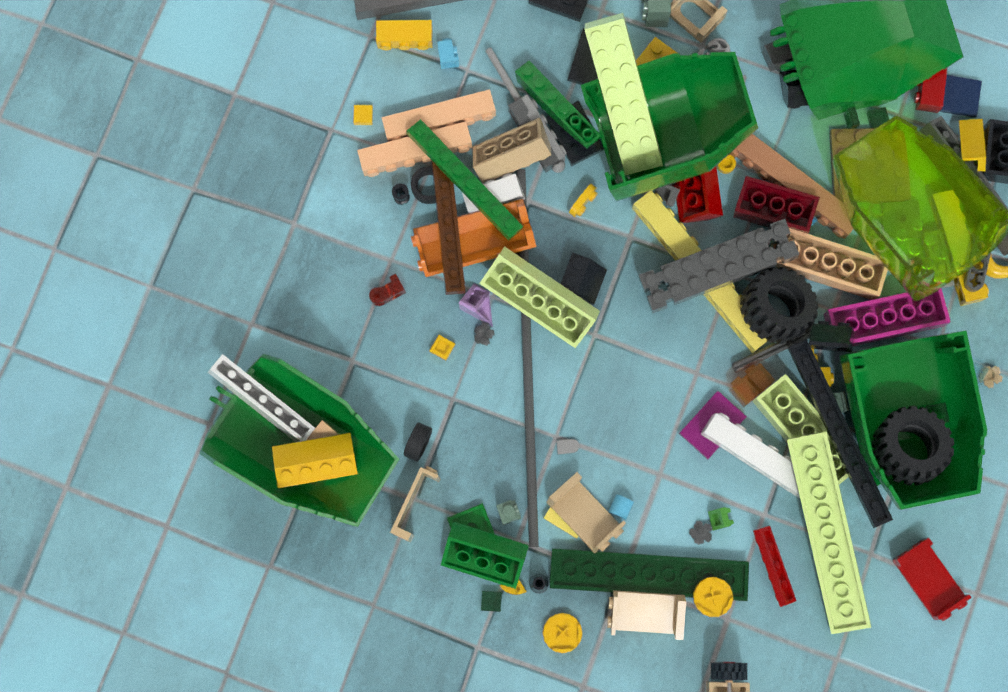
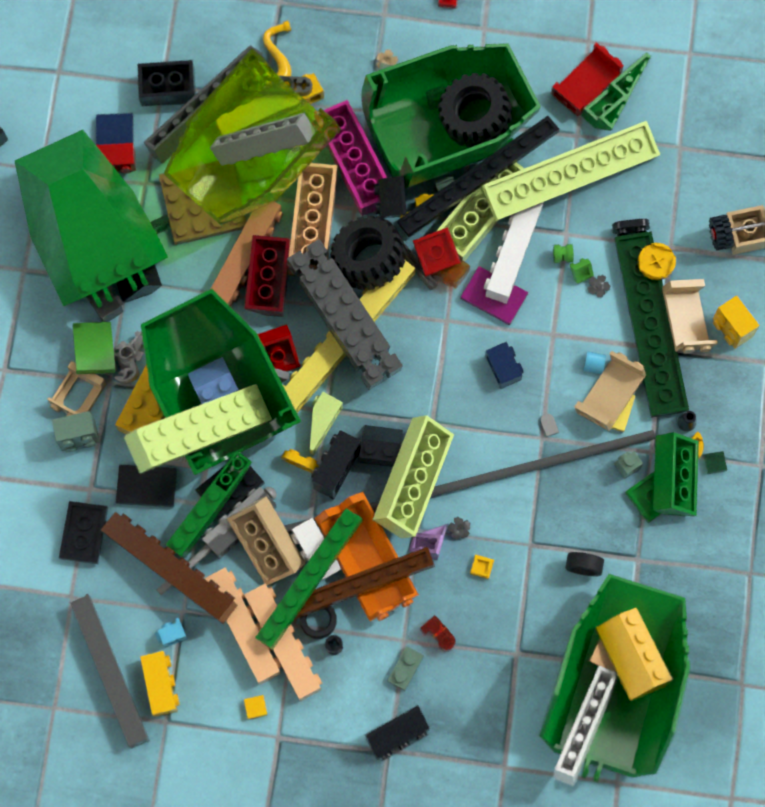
camera: 105 degrees left, 5 degrees down
(303, 231) = (397, 733): none -> black slope
(364, 255) = (405, 668): none -> sand green plate
(396, 529) = (646, 558): tan panel -> none
(506, 59) = (170, 568): none -> reddish brown brick
(562, 633) = (726, 391): yellow tile -> none
(570, 229) = (336, 464): none -> black brick
(621, 230) = (324, 415): none -> yellowish green slope
(629, 659) = (735, 322): none -> yellow brick
(637, 415) = (504, 365): none -> dark blue brick
(673, 127) = (213, 381): none -> medium blue slope
(737, 33) = (93, 348): none -> bright green tile
(742, 504) = (563, 253): none -> bright green wheel
(756, 589) = (630, 226): none -> black plate
(766, 373) = (436, 251): none -> red plate
(775, 566) = (612, 214): red plate -> none
(877, 117) = (153, 201): clear green tile -> none
(896, 592) = (607, 107): none -> green wedge
(915, 219) = (263, 139): none -> light grey brick
(973, 142) = (165, 109): yellow panel -> none

